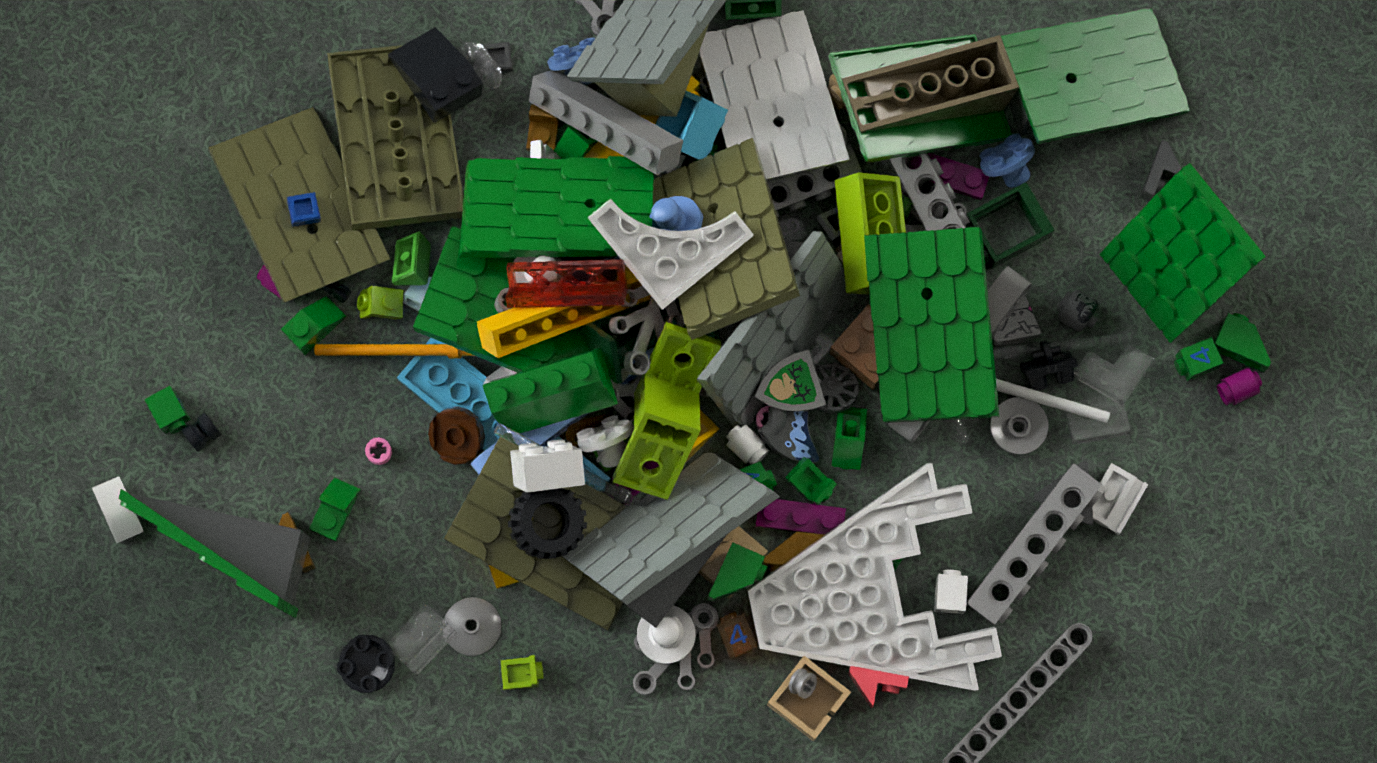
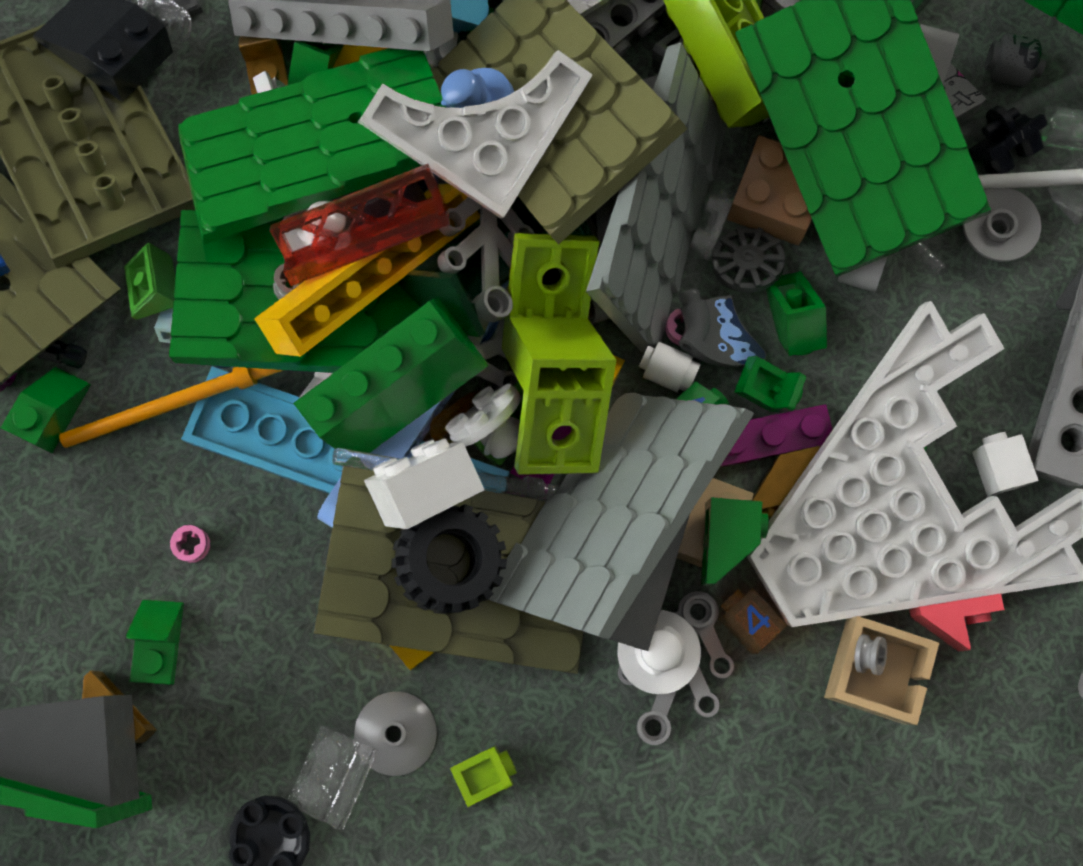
camera: 20 degrees left, 0 degrees up
(380, 303) = (129, 350): lime bracket -> none
(456, 435) = (286, 486): reddish brown tile -> none
(792, 384) = (701, 268): shield -> none

